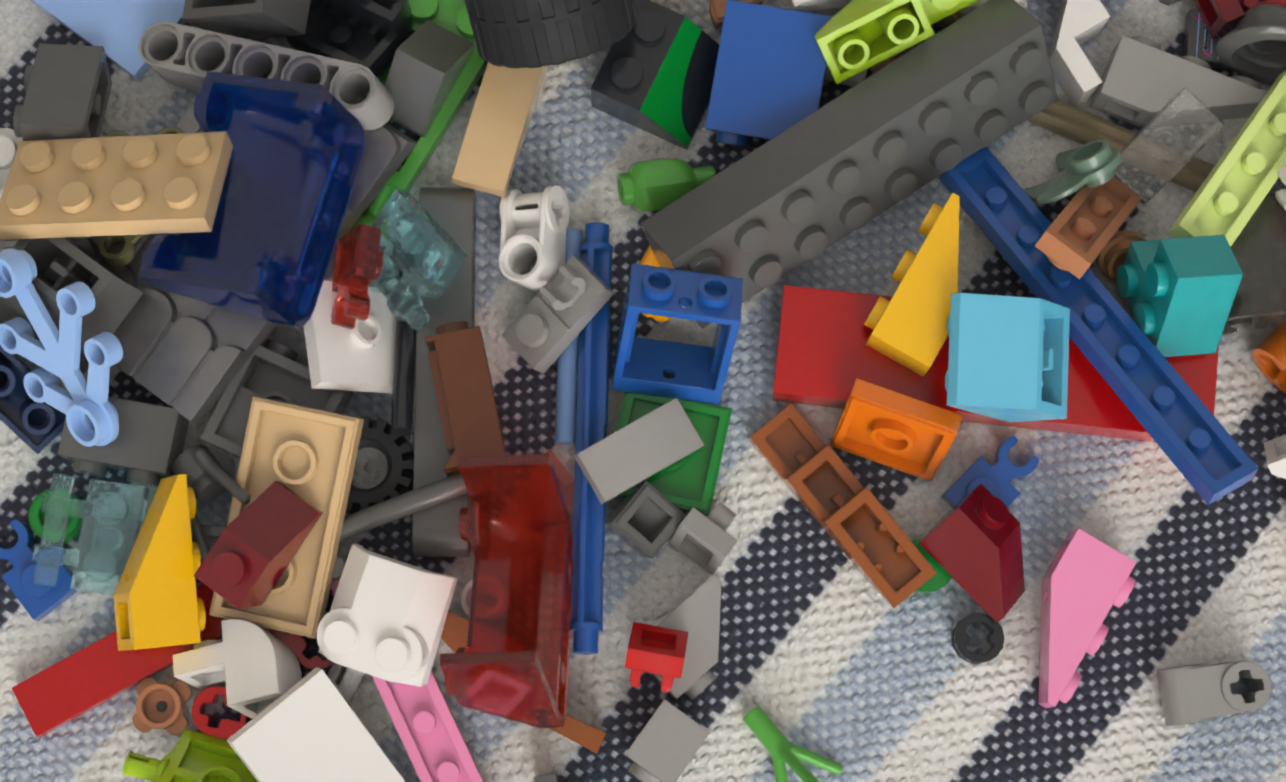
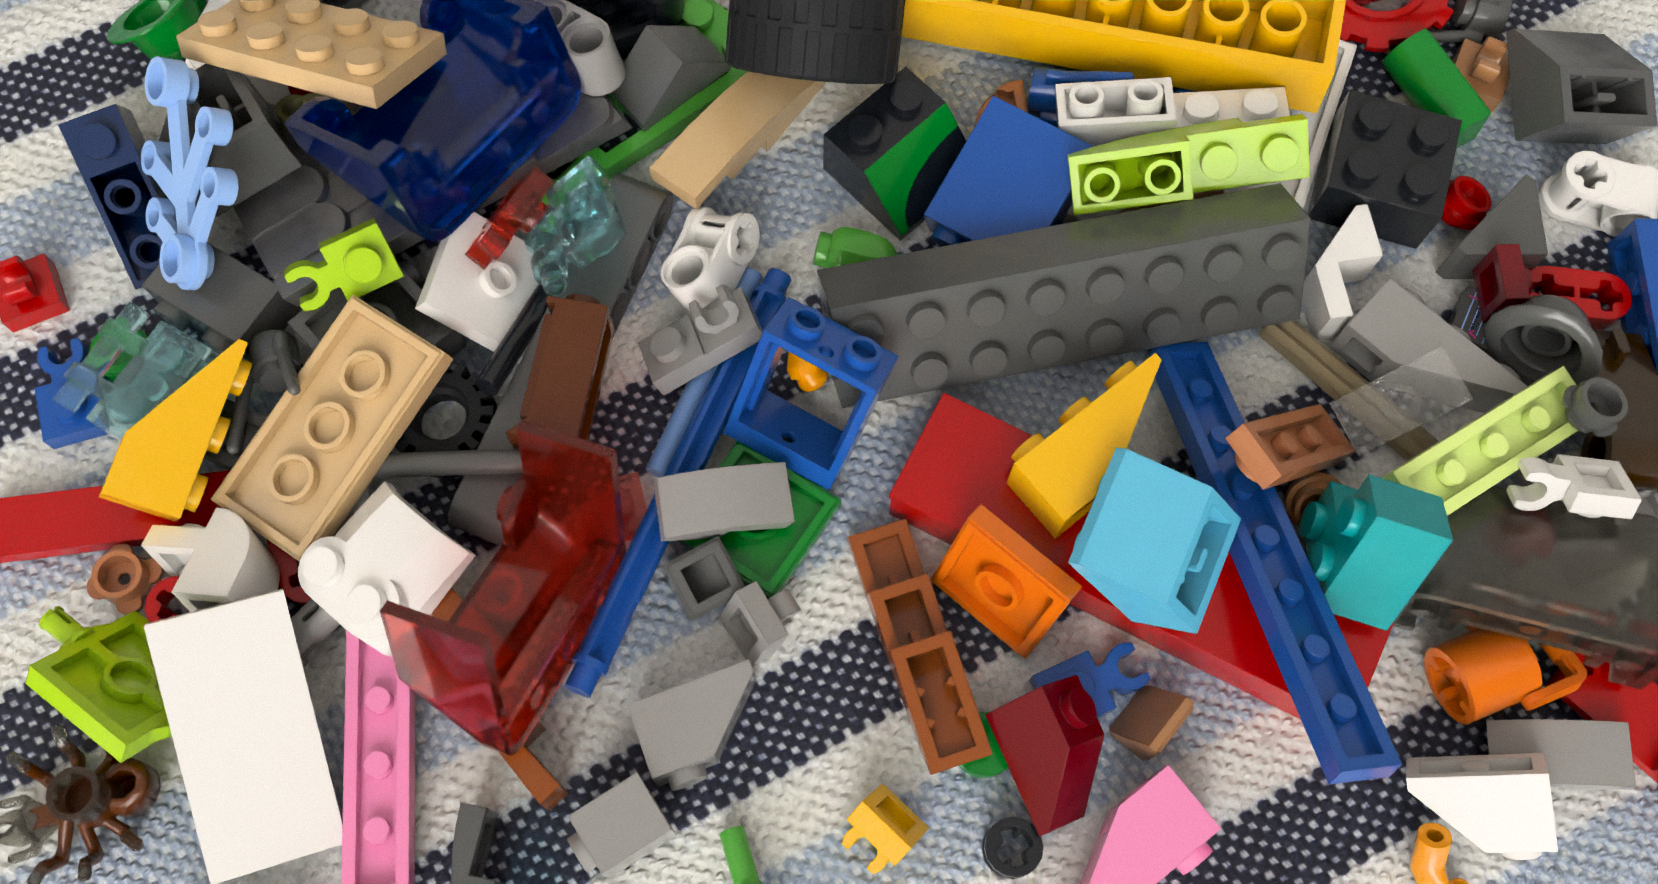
camera: 20 degrees right, 10 degrees down
(238, 367) = (354, 261): none -> lime plate
(258, 546) = (279, 441): dark red slope -> none
(657, 652) = (647, 714): red tile -> none
(874, 661) = (886, 825): none -> yellow tile
(1051, 494) = (1150, 721): none -> medium nougat slope
(1088, 165) = (1312, 388): sand green plate -> none

